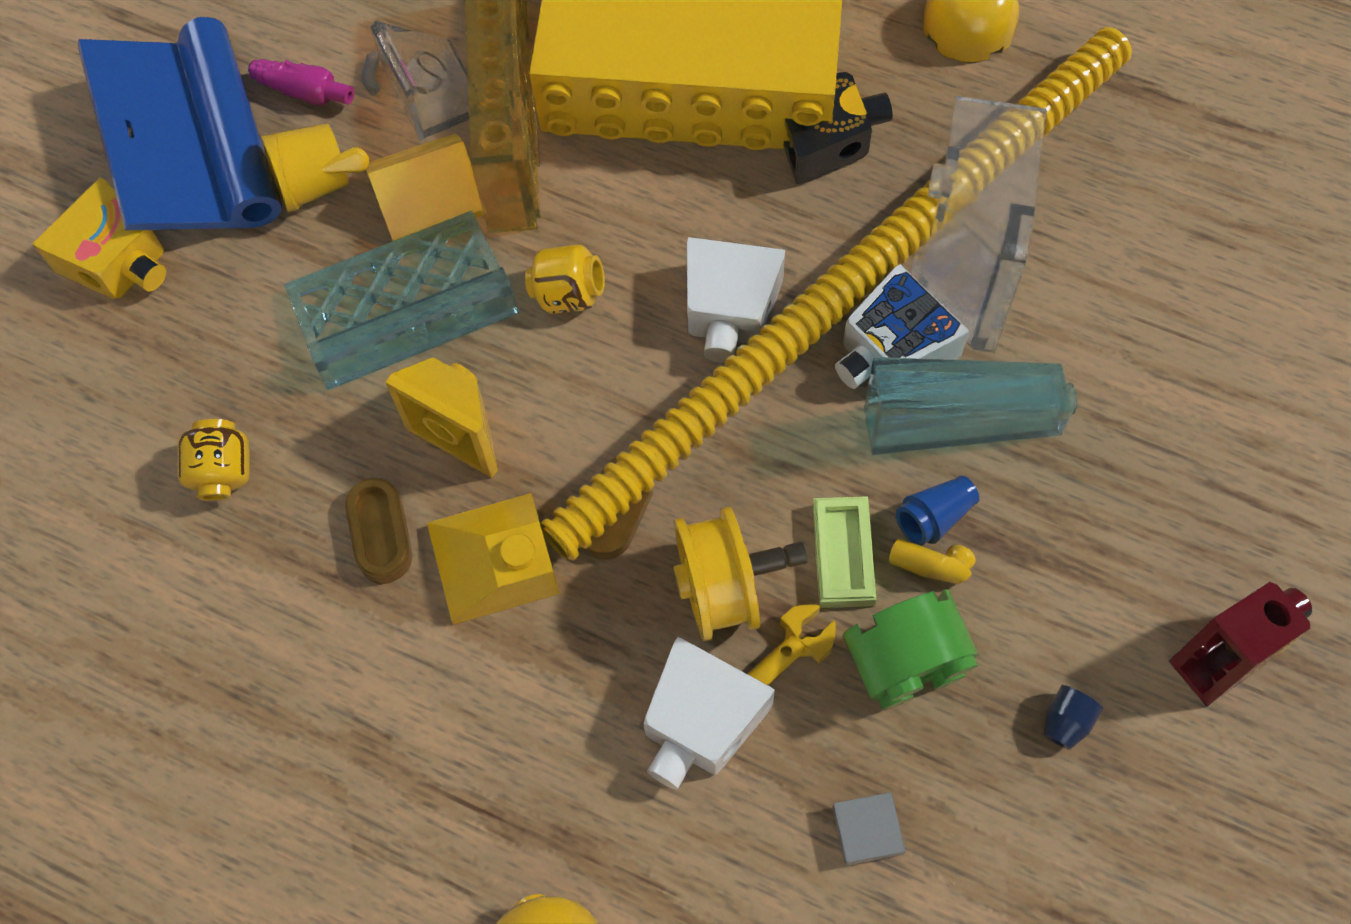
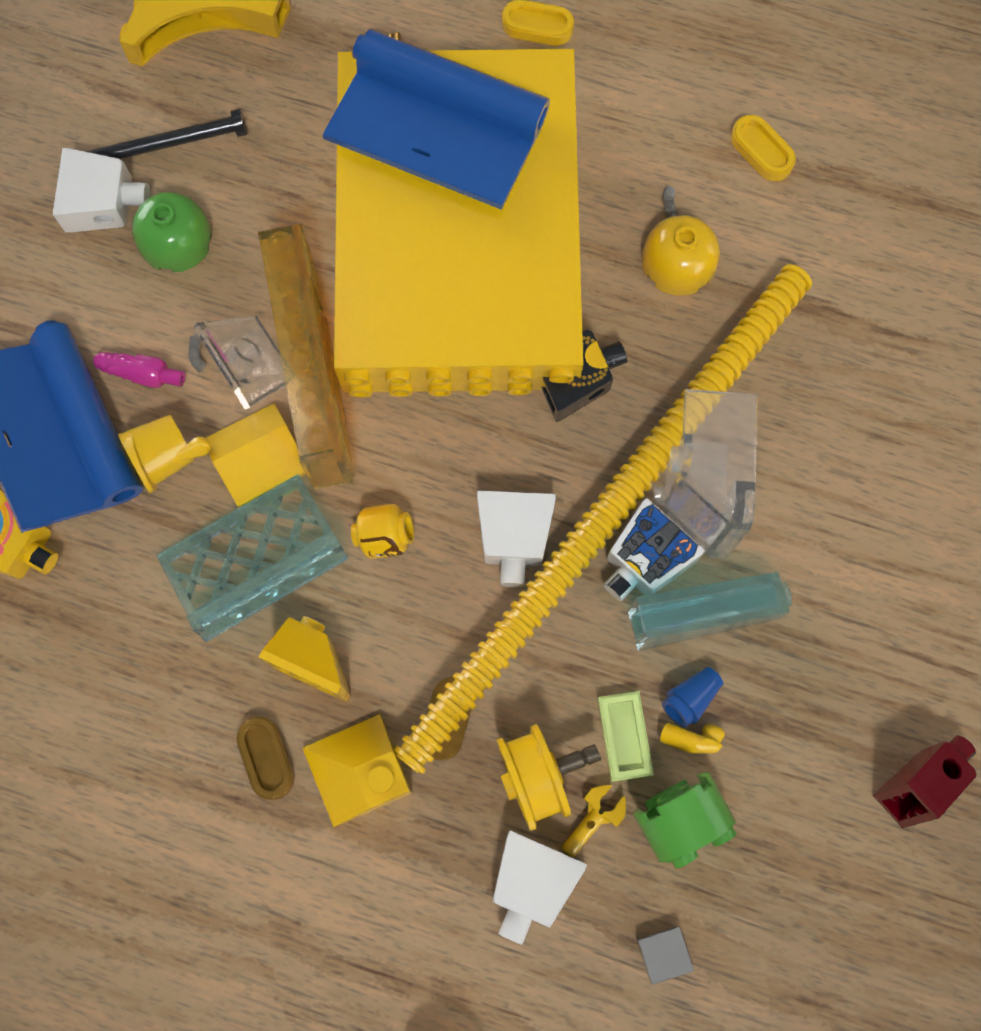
camera: 10 degrees left, 10 degrees up
(213, 459) = (126, 718): yellow head -> none
(1070, 717) = (804, 852): dark blue hose -> none

